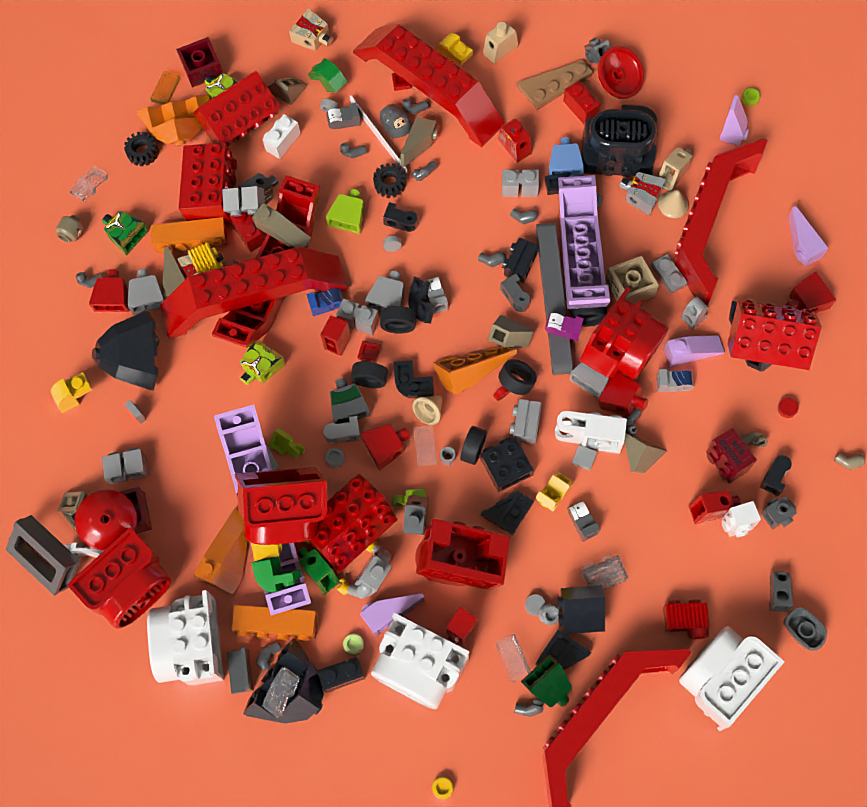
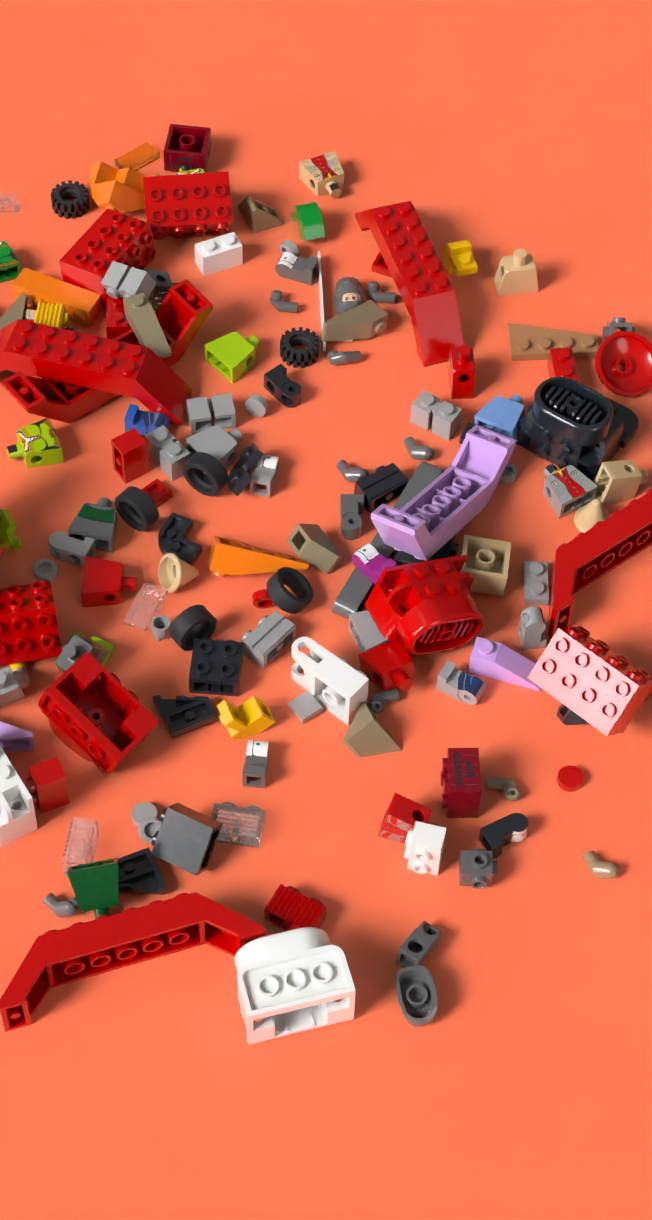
camera: 25 degrees right, 15 degrees down
(368, 263) = (222, 410): none -> light grey piece

